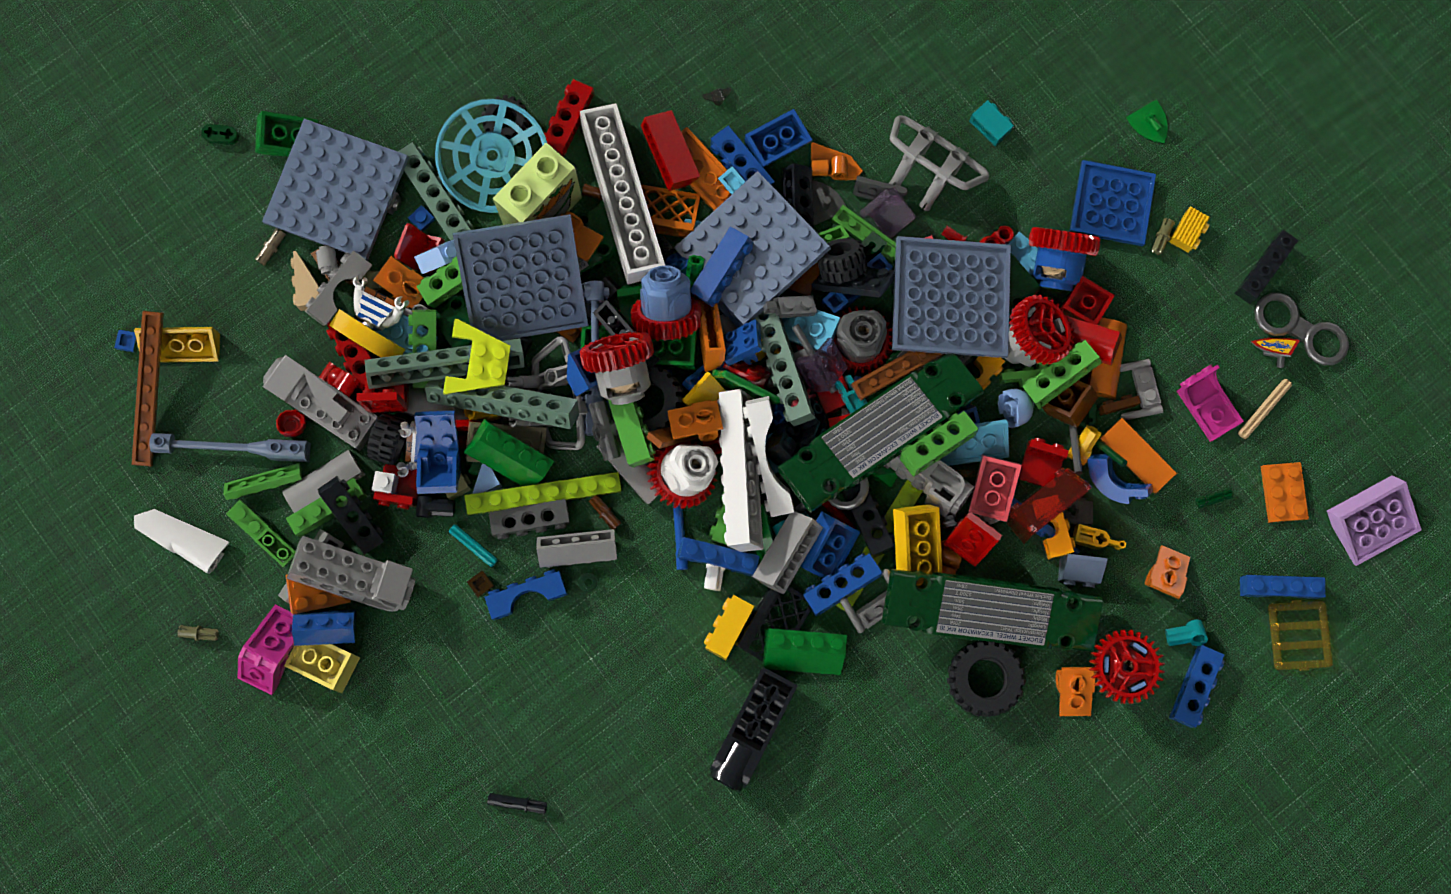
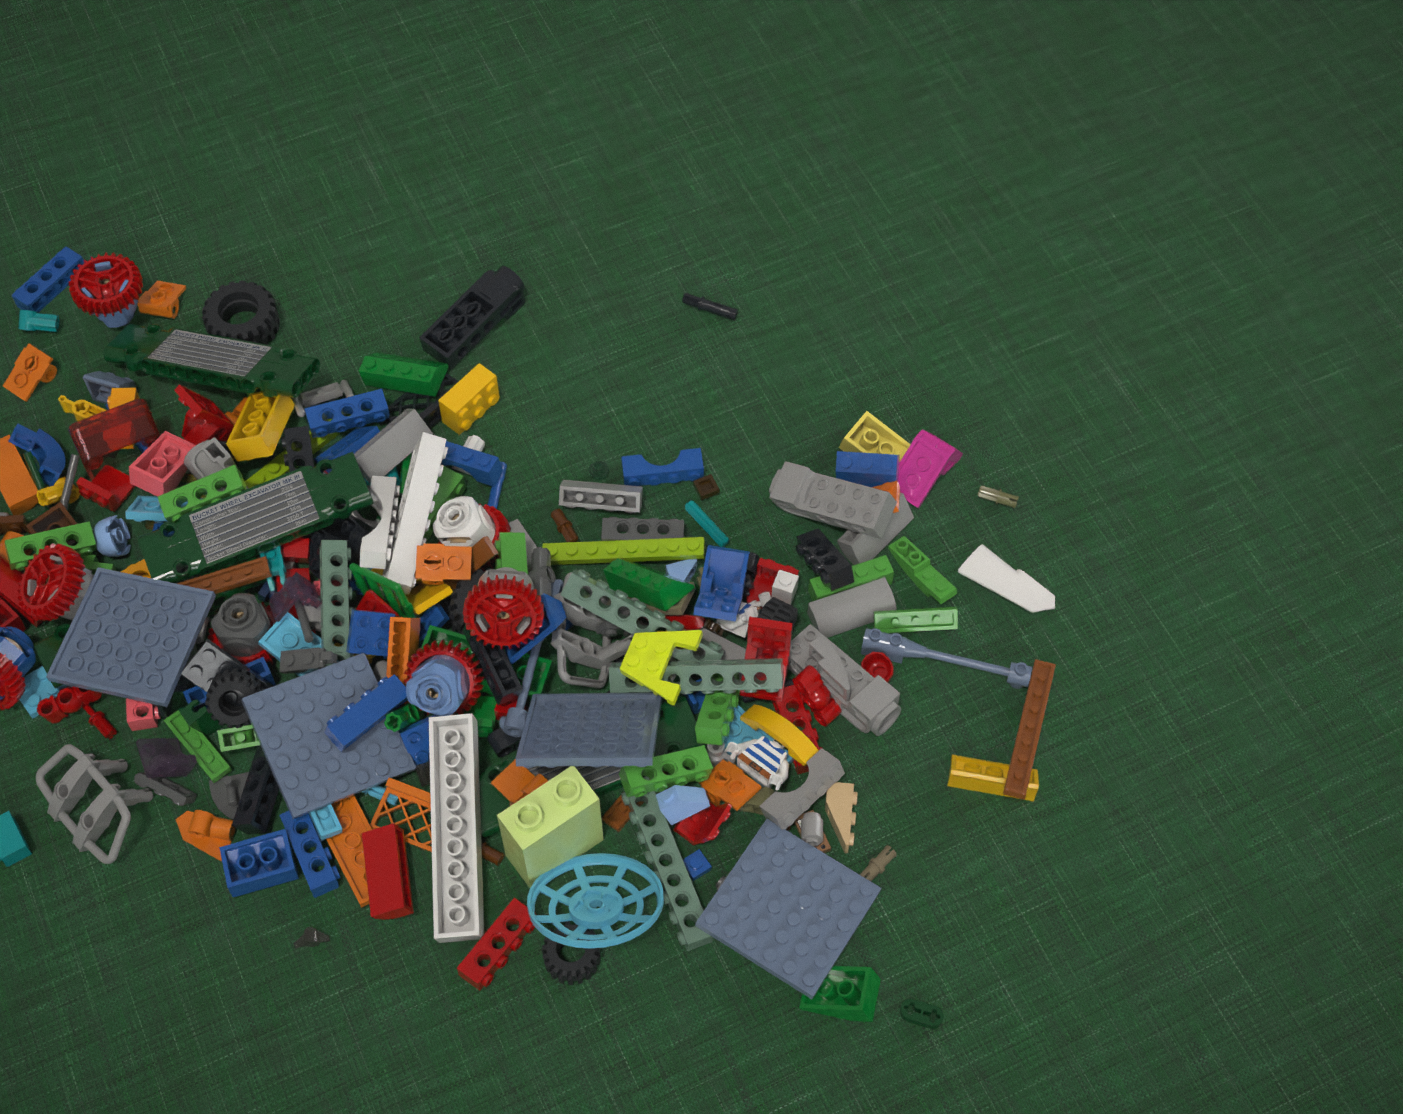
camera: 165 degrees left, 20 degrees down
(126, 341) = (1052, 791): blue plate -> none

